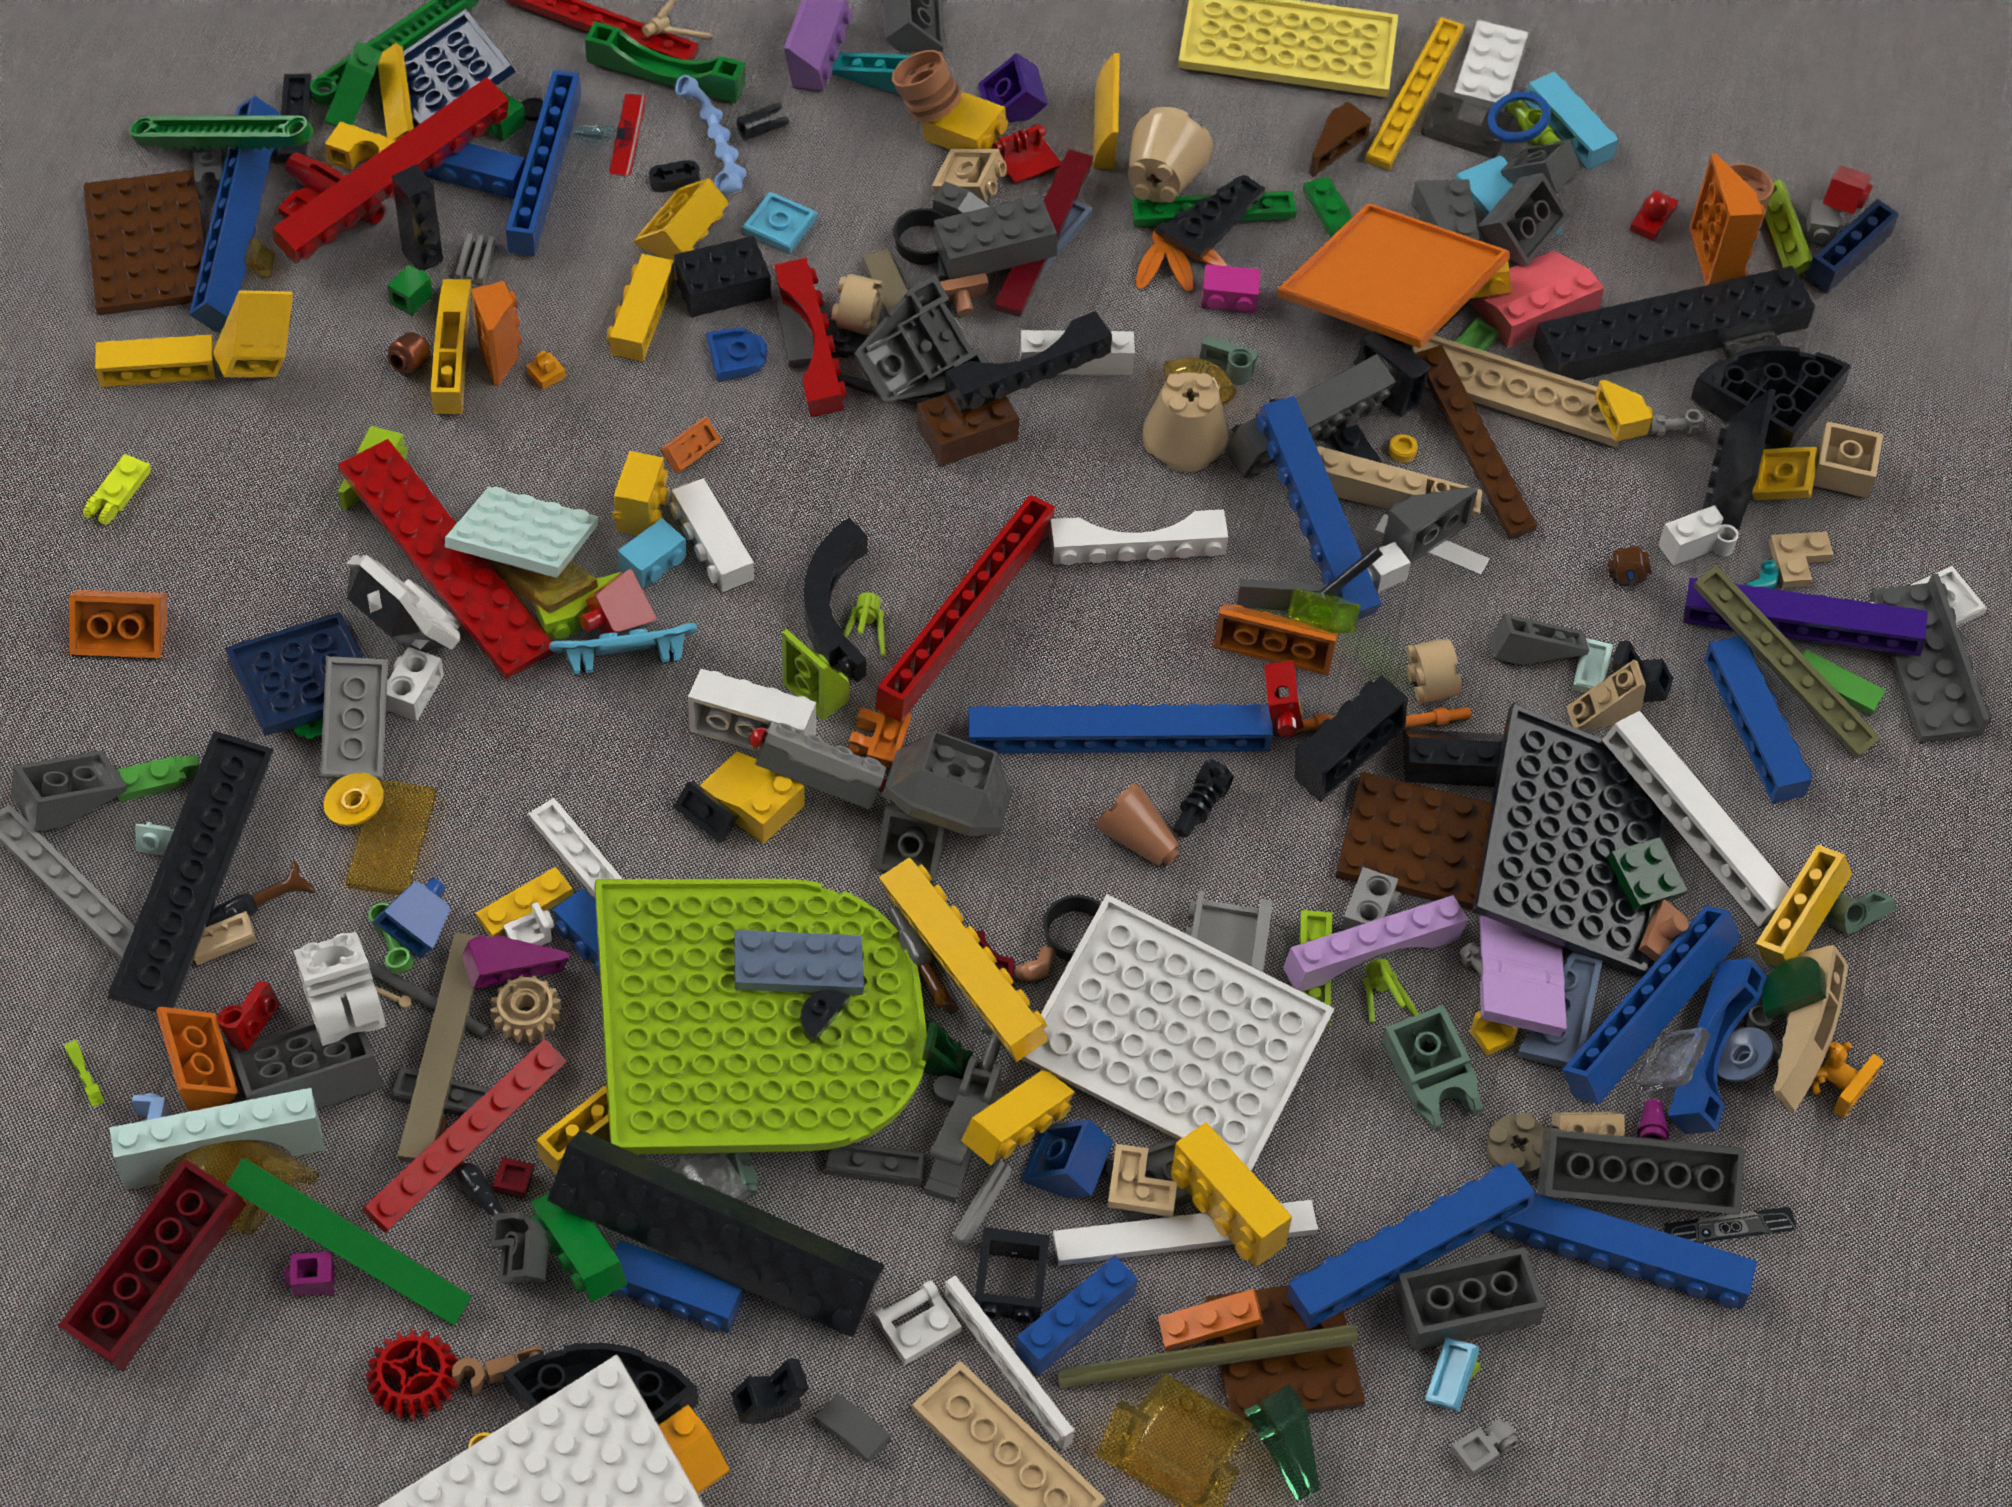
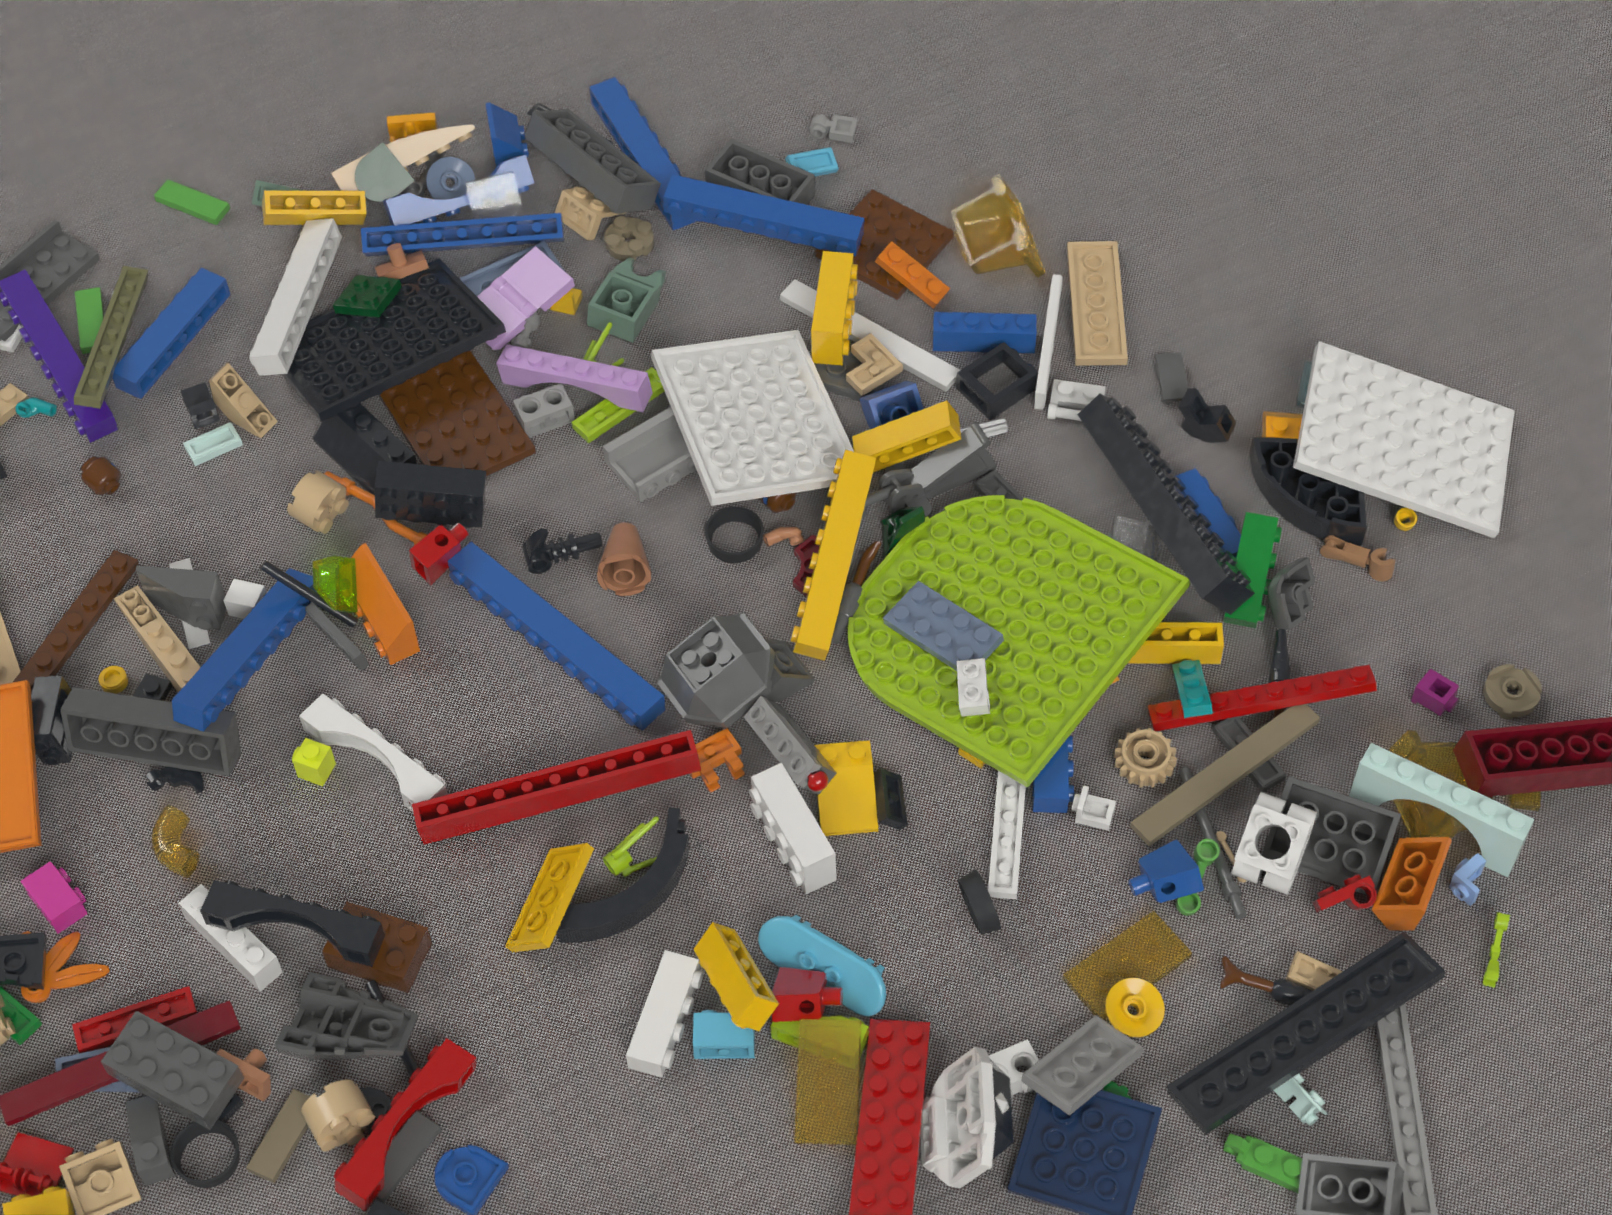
camera: 130 degrees left, 0 degrees up
(243, 1359) = (1505, 703): none -> dark tan plate
(349, 1241) = (1401, 682): green tile -> none
(389, 1364) = (1416, 597): red gear -> none
(500, 958) = (1134, 786): magenta slope -> none
(513, 1177) = (1250, 658): dark red plate -> none
(522, 531) = (810, 1124): light aqua plate -> none
(532, 1087) = (1192, 688): none -> teal plate
(536, 783) = (979, 903): none -> black tyre
(546, 889) = (1076, 839): yellow plate -> none
(640, 493) = (687, 1081): yellow brick -> none
(676, 573) = (735, 977): none -> yellow brick
(691, 444) = (596, 1110): orange plate -> none
(708, 907) = (973, 687): none -> white plate
(812, 676) = (717, 822): lime slope -> none
(820, 1012) = (963, 585): black plate -> none
(883, 538) = (549, 898): none -> yellow tile
(1074, 268) = (105, 1028): none -> red plate
(1175, 497) = (313, 761): none -> neon yellow brick
(1186, 423) = (235, 807): tan cone -> none
(1207, 1356) = (932, 256): olive axle -> none
(1237, 360) = (133, 838): sand green plate -> none
(1287, 1437) = (937, 193): clear green slope -> none
(1534, 641) = (228, 474): dark grey slope -> none
(1653, 1121) = (545, 191): magenta cone -> none
(1697, 535) = (35, 459): white hinge -> none
(1759, 1130) = (505, 134): none -> blue slope
(1926, 851) = (192, 202): none -> bright green tile

